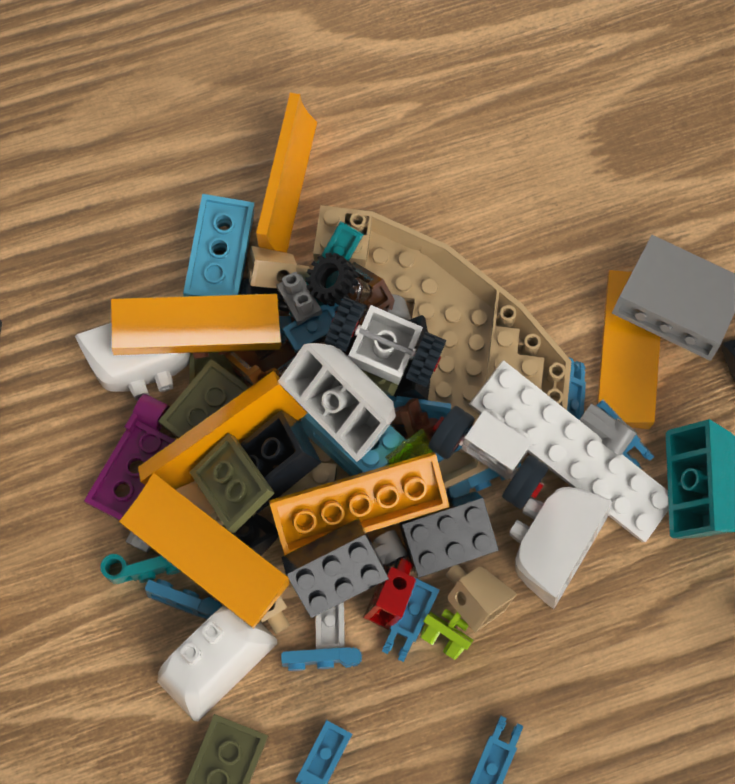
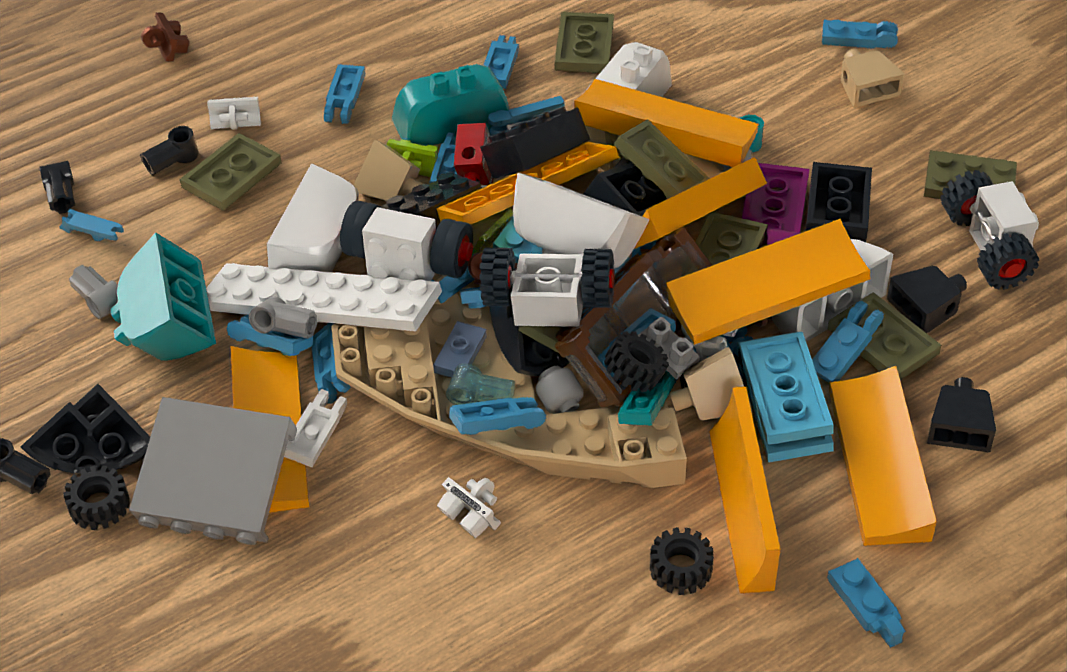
camera: 165 degrees right, 25 degrees down
(55, 325) = (926, 296): none -> black torso
(83, 438) = (840, 194): none -> black brick
(93, 206) = (963, 418): none -> black torso
(105, 282) = (895, 341): none -> olive plate
(158, 285) = (846, 343): none -> dark azure hinge
(169, 194) = (882, 460): none -> light orange arch
(235, 88) = (867, 601): none -> dark azure hinge
(355, 133) = (681, 577): none -> black tyre
(393, 690) = (439, 102): none -> teal hips
(455, 278) = (496, 415): none -> dark azure hinge
(462, 367) = (459, 348): none -> sand blue plate
(463, 320) = (472, 386): none -> clear light blue piece
(487, 231) = (480, 515): none -> white hips
(593, 325) = (315, 429): none -> white hinge
(627, 669) = (230, 171): none -> olive plate
(627, 760) = (234, 112): none -> white hips
(687, 713) = (179, 148): none -> black piece

